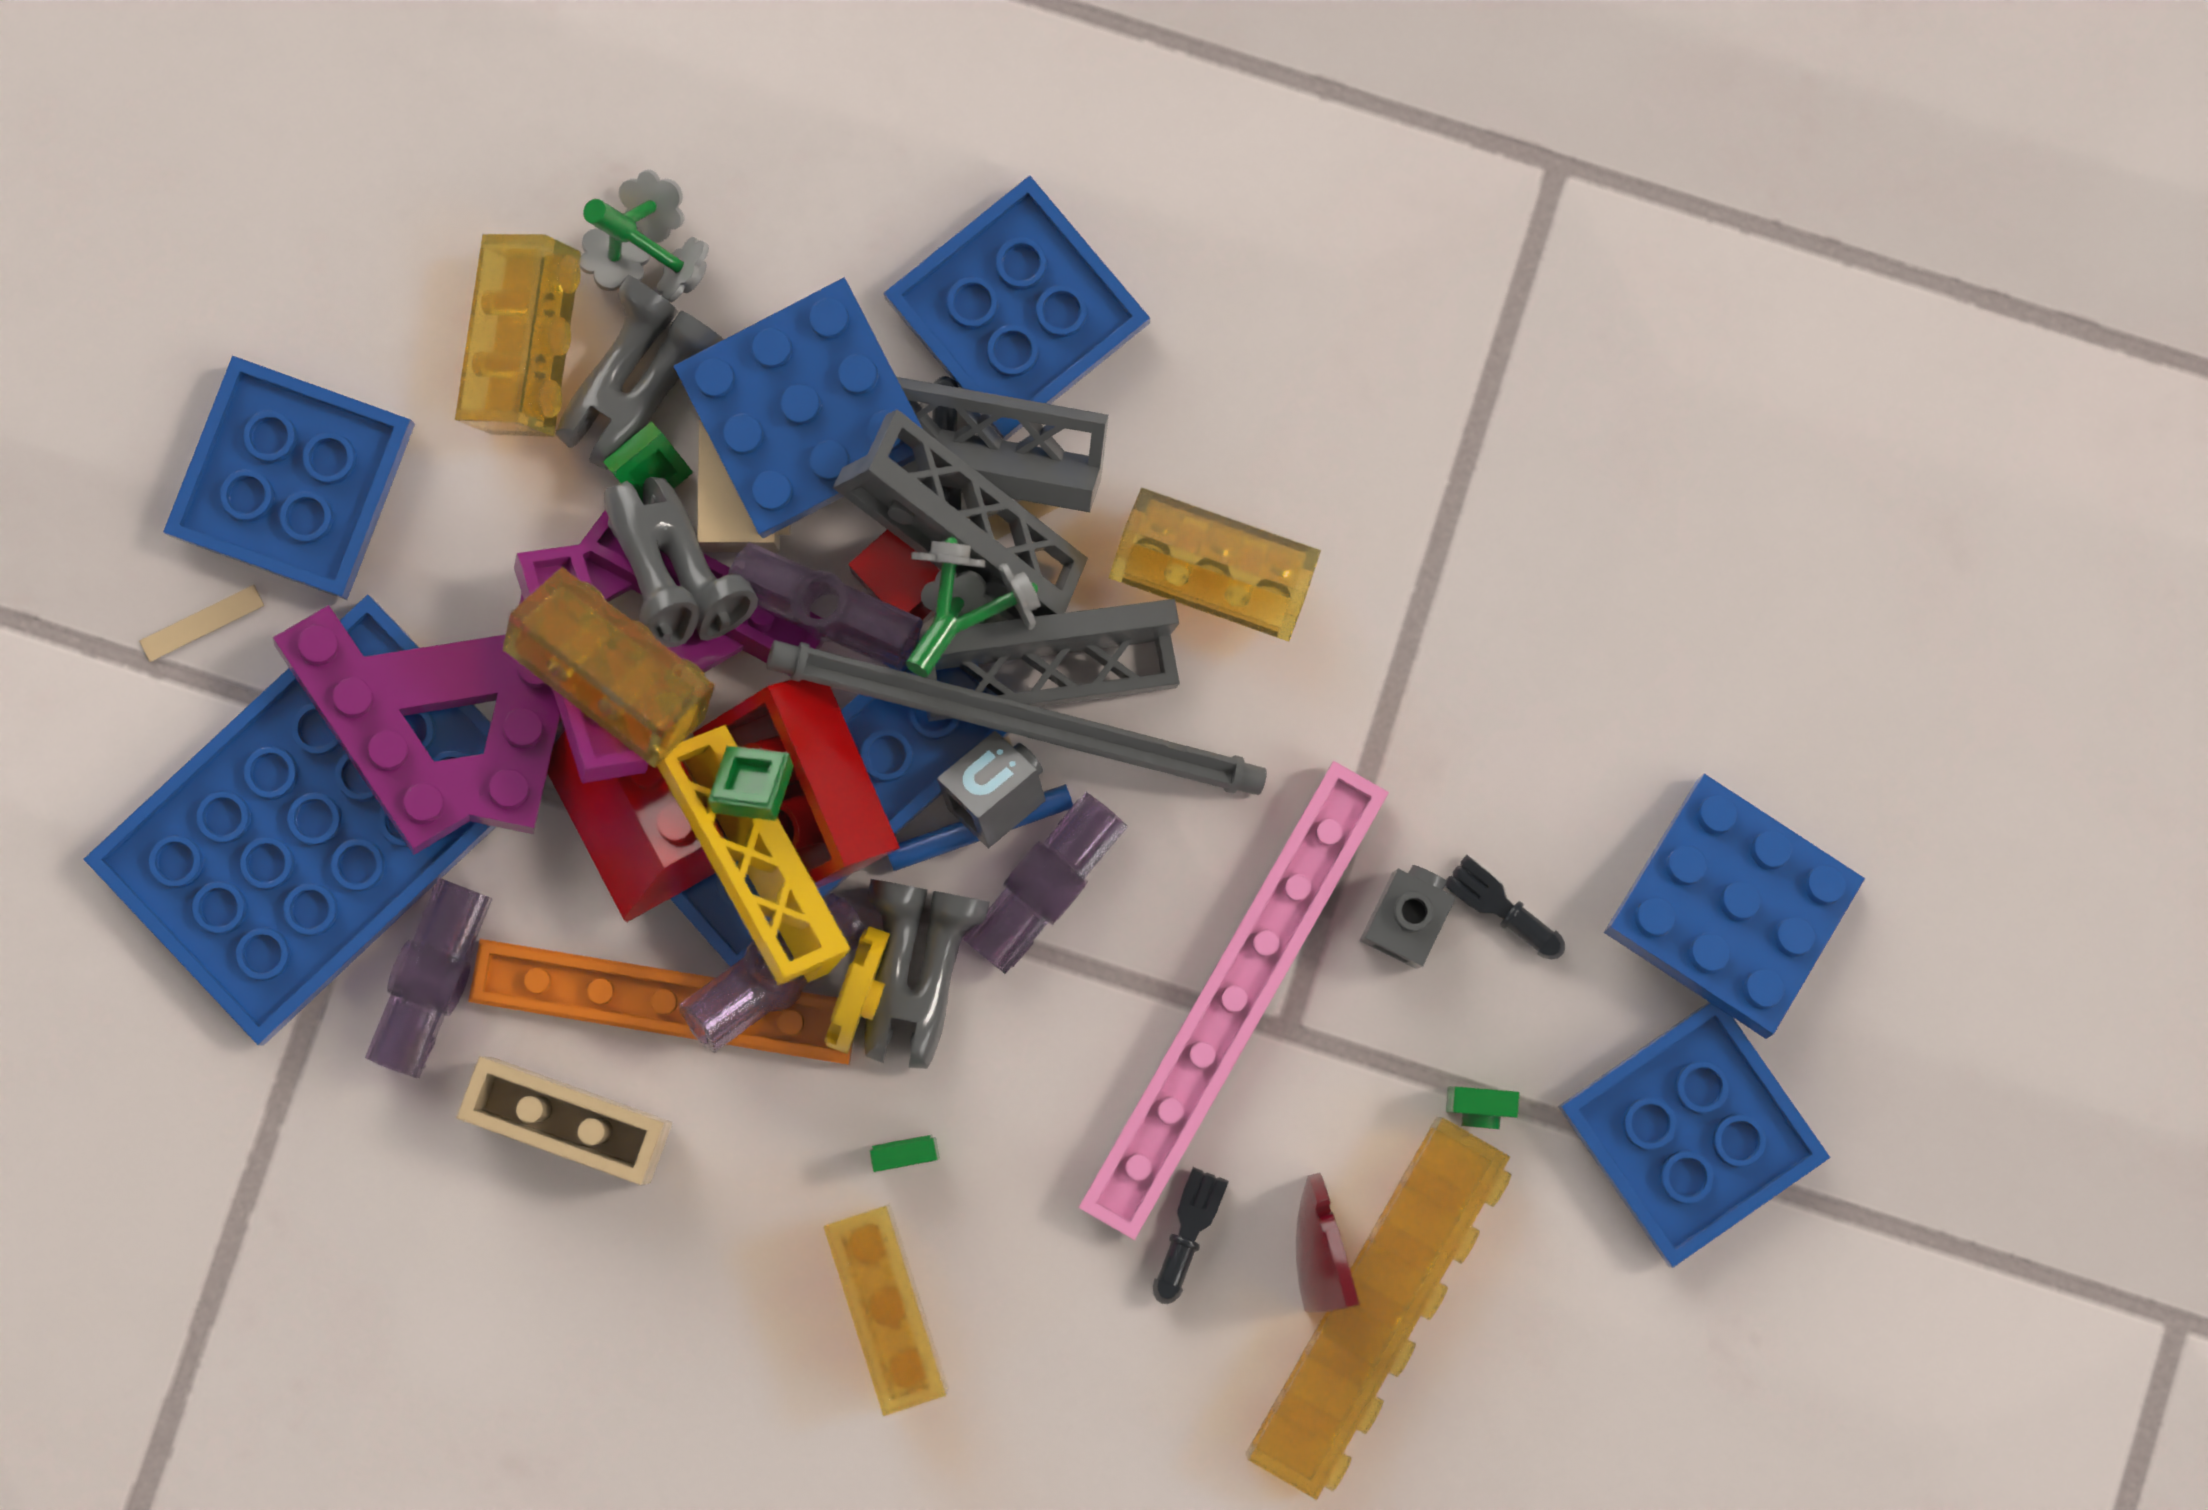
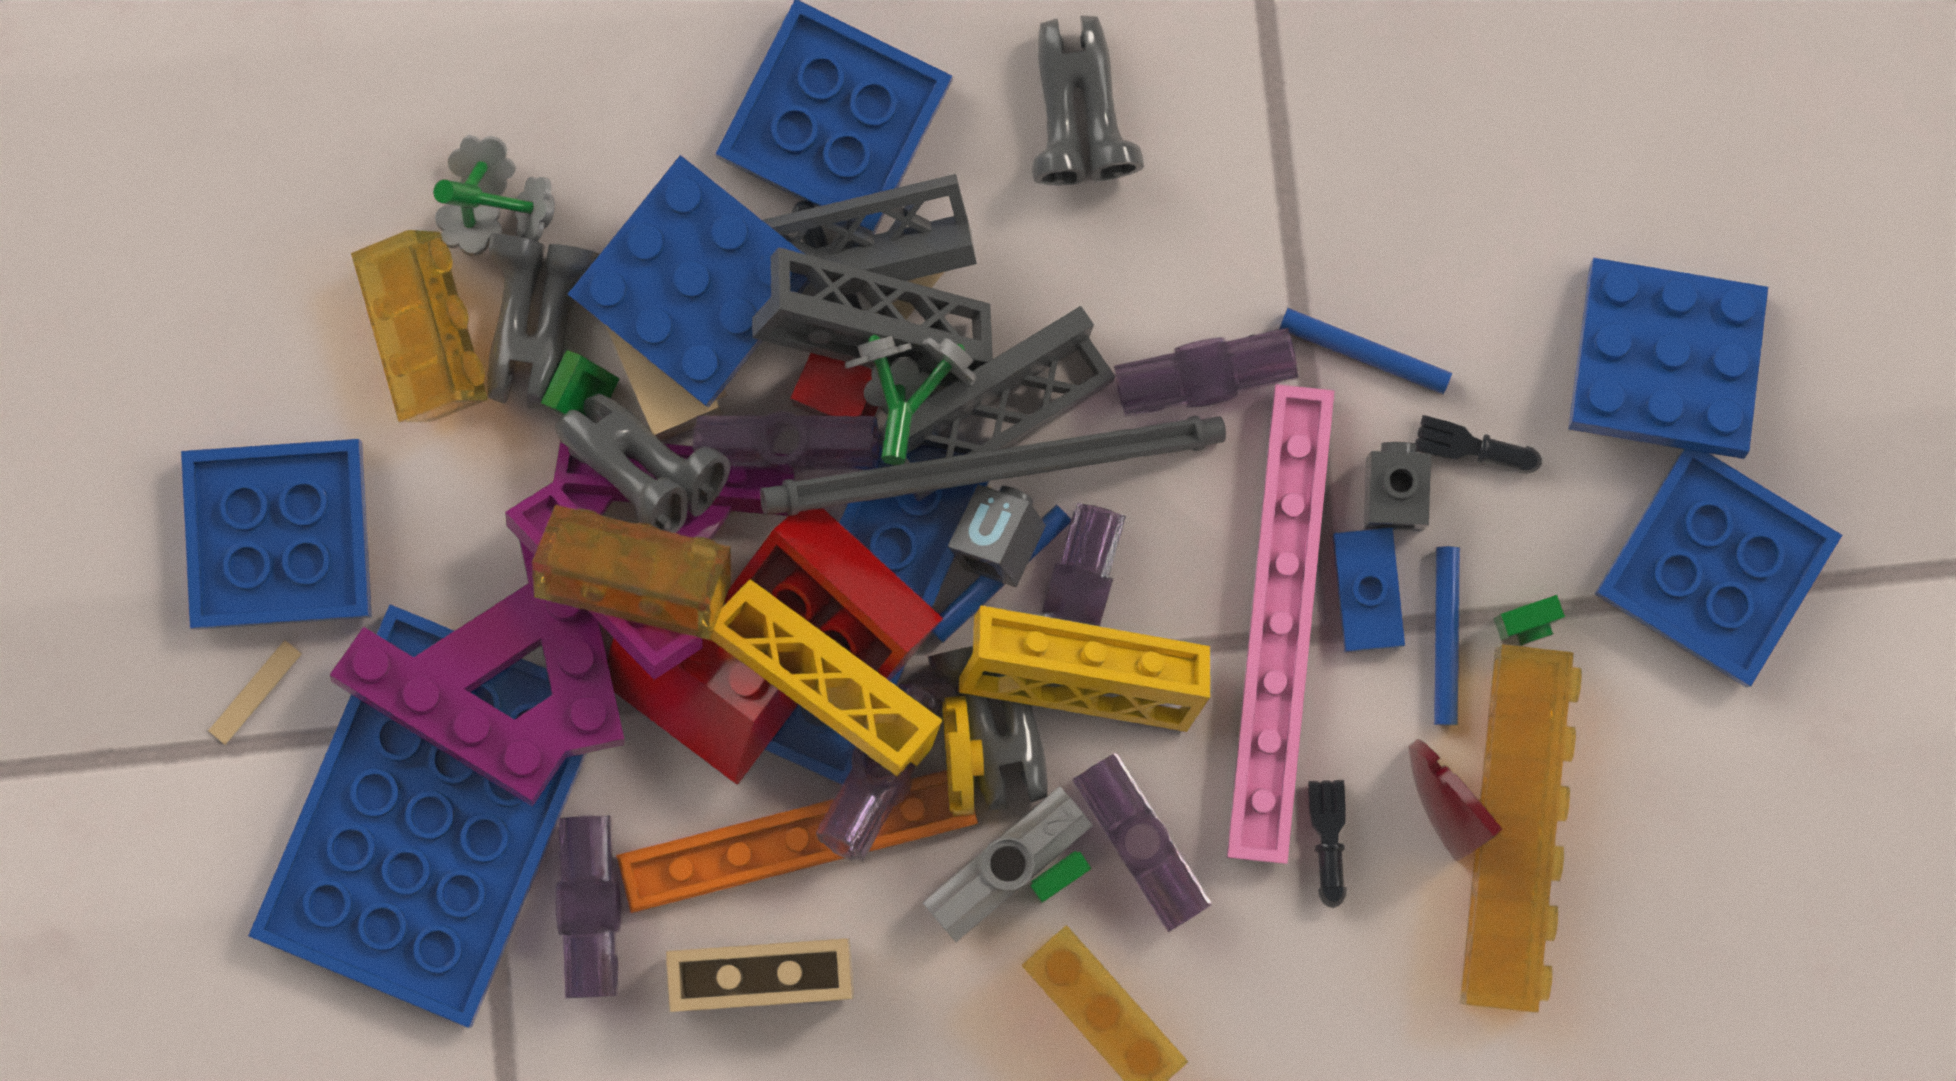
camera: 15 degrees left, 0 degrees up
(750, 783) = (796, 617): green tile -> none
(817, 1127) = (1038, 836): none -> light grey piece
(1004, 1199) = (1164, 876): none -> clear purple piece
(1020, 958) = (1088, 664): none -> yellow fence
(1214, 564) = (1101, 261): clear yellow brick -> none
(1257, 364) = (1091, 72): none -> dark grey piece
(1270, 719) = (1206, 372): none -> clear purple piece
(1336, 1004) = (1368, 590): none -> blue plate
(1393, 1083) = (1447, 636): none -> blue bar
(1437, 766) = (1366, 351): none -> blue bar

